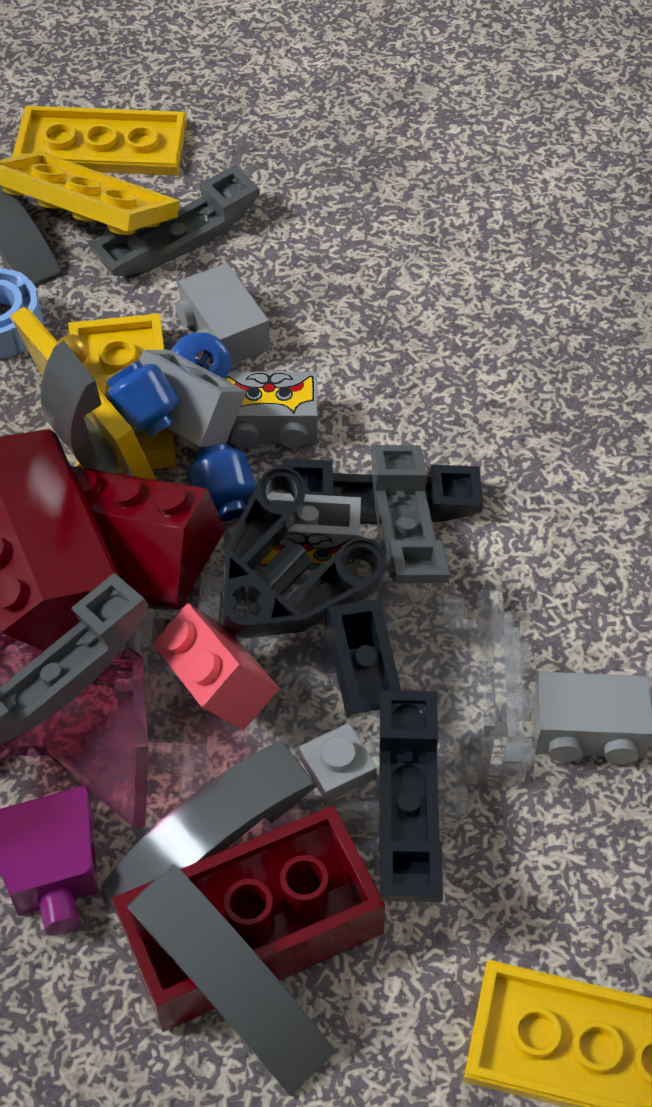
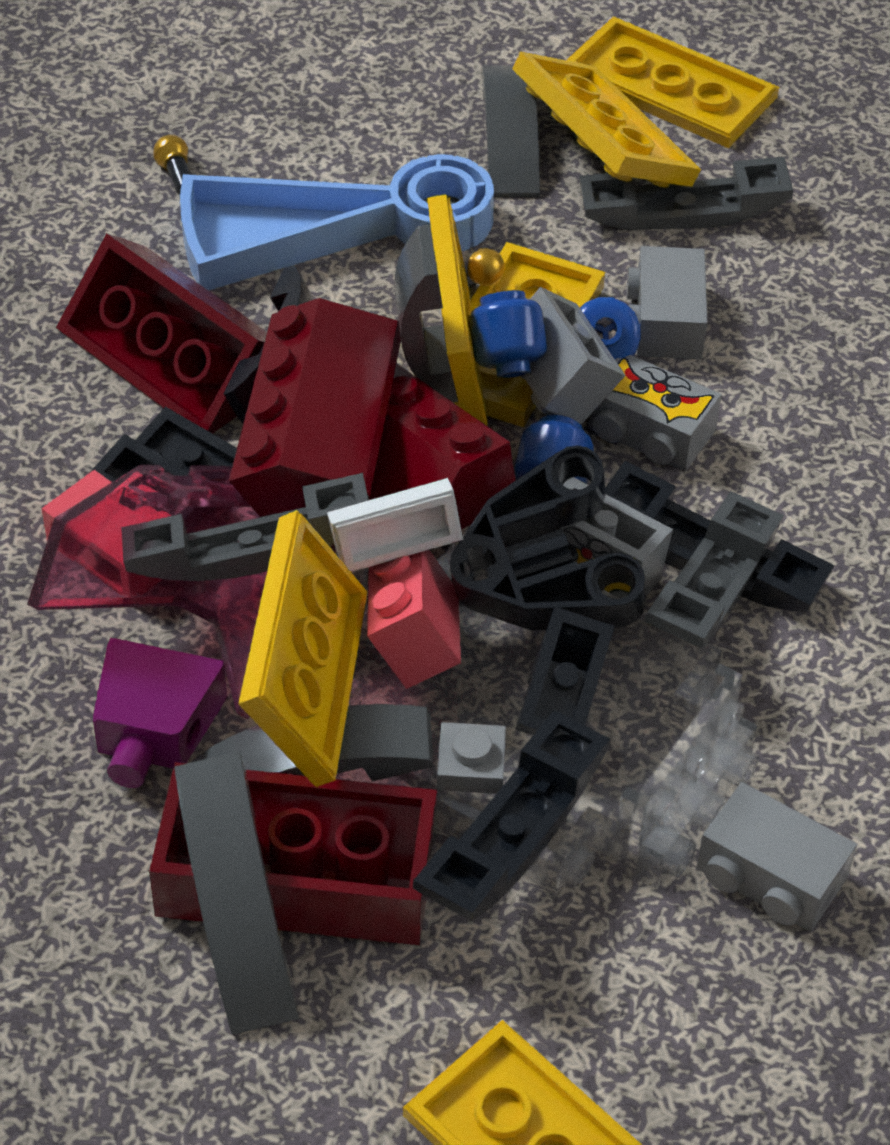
camera: 30 degrees right, 5 degrees down
(170, 605) = (396, 525): none -> white tile
(172, 748) = (304, 649): none -> yellow tile

